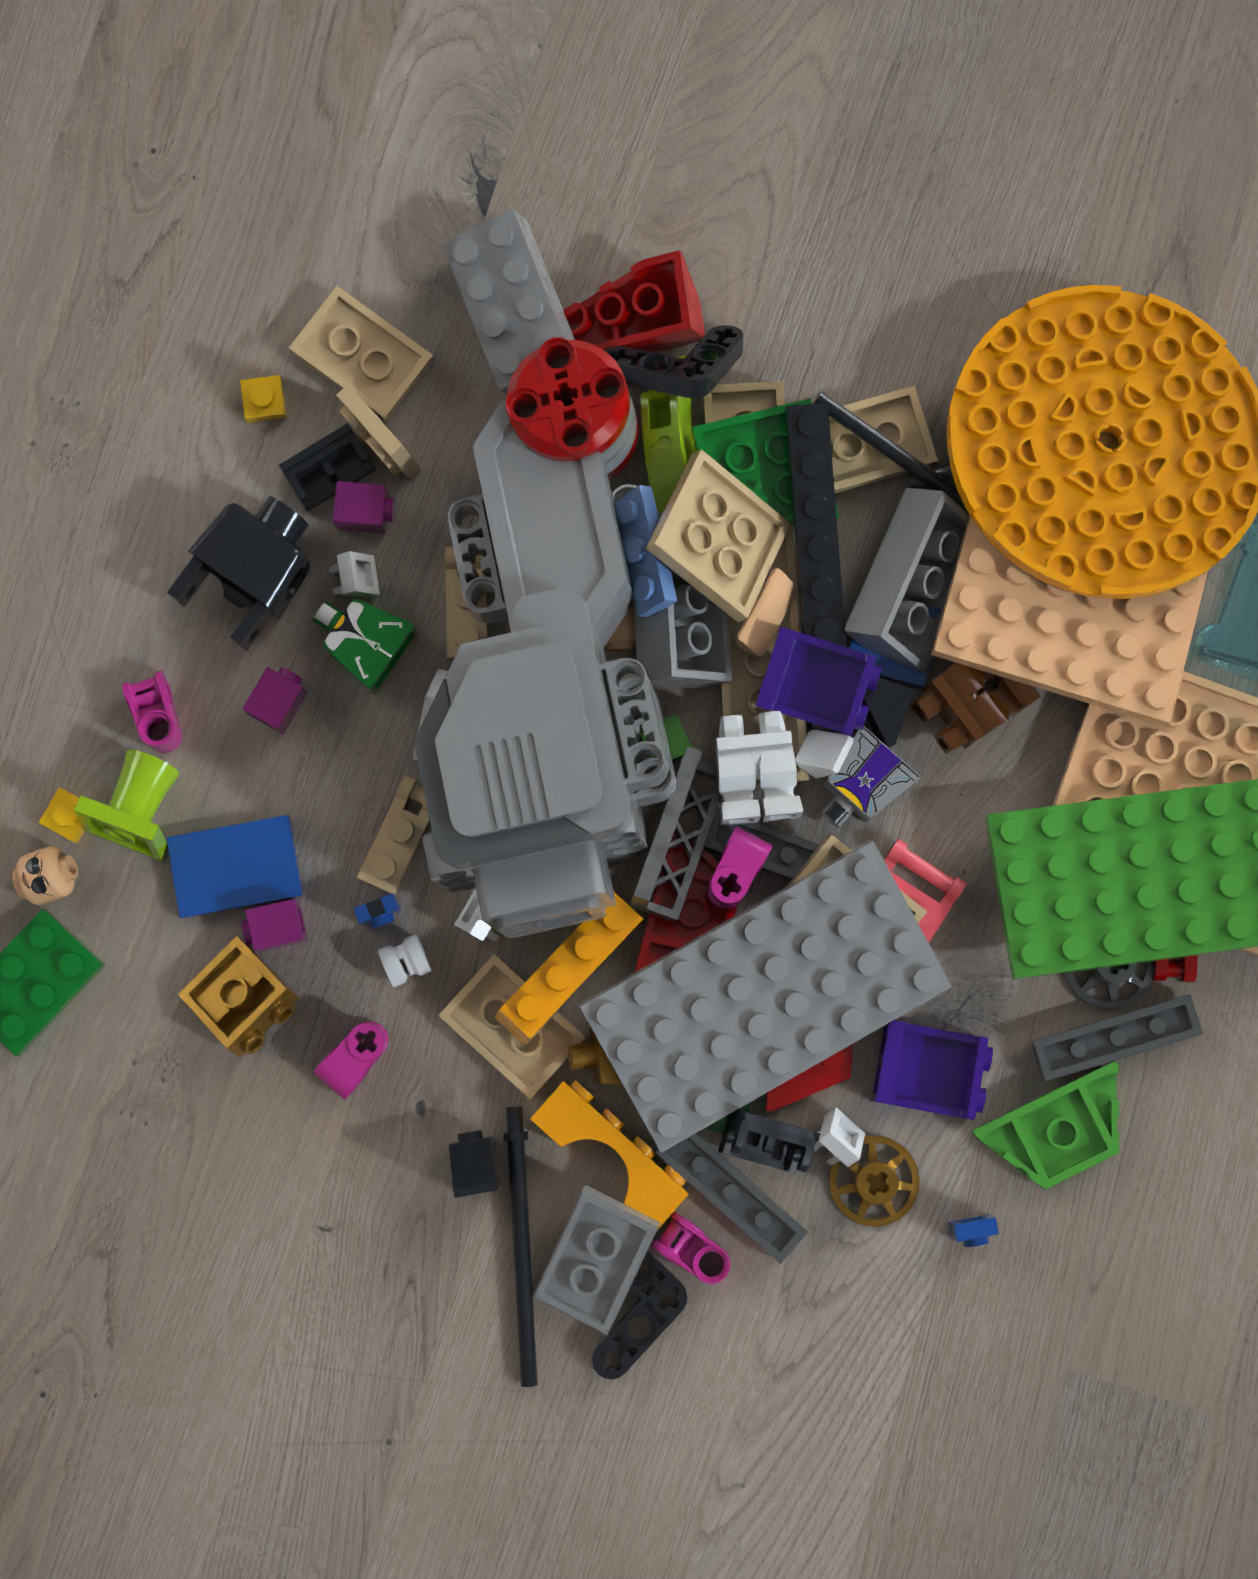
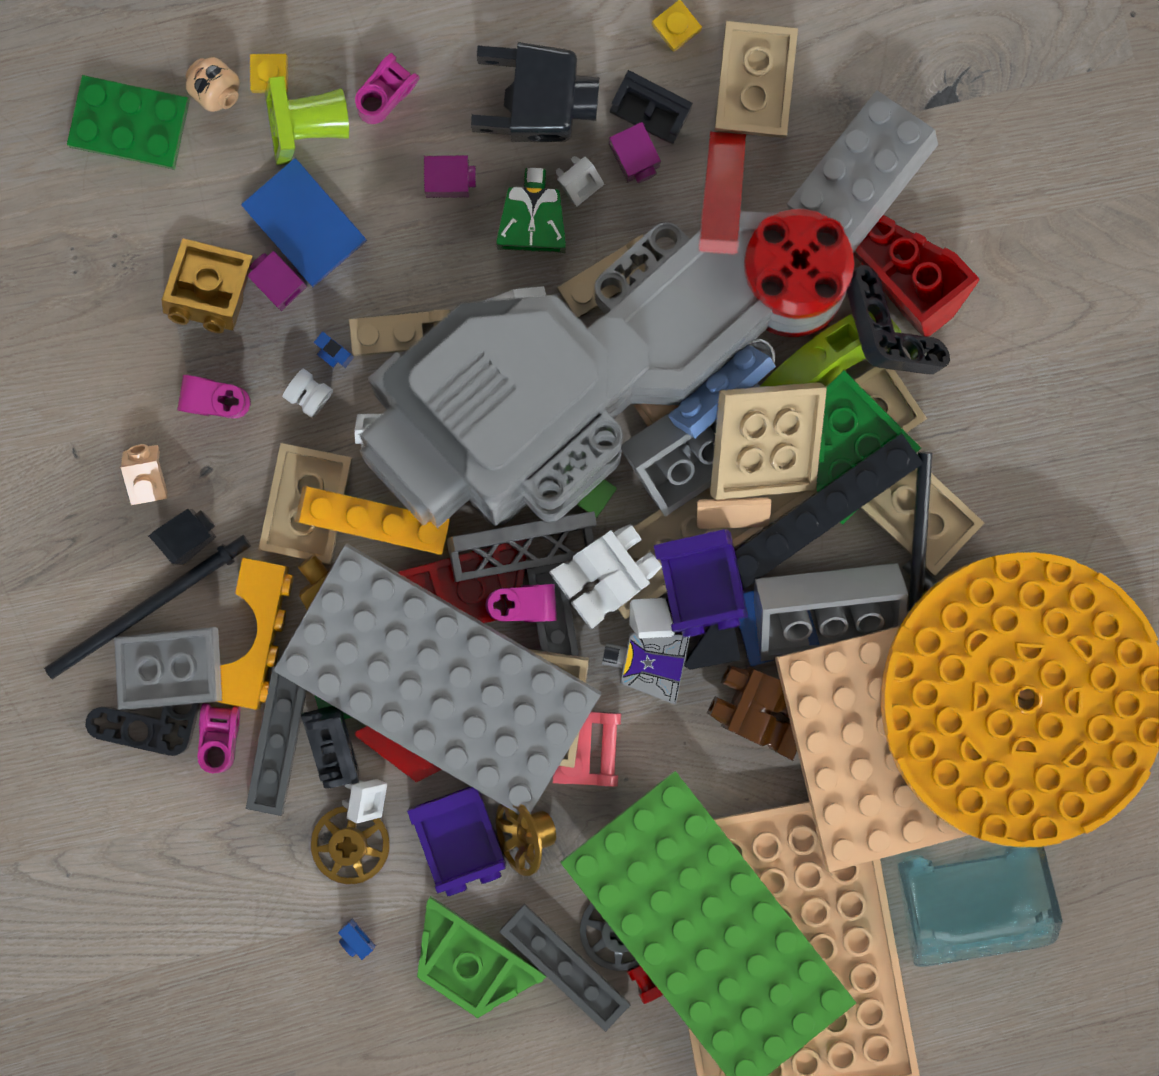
camera: 60 degrees right, 5 degrees up
(376, 434) = (691, 140): tan plate -> none
(387, 1171) = (143, 474): none -> light nougat bracket
(456, 436) = (723, 193): none -> red tile
(967, 995) = (529, 835): none -> pearl gold wheel

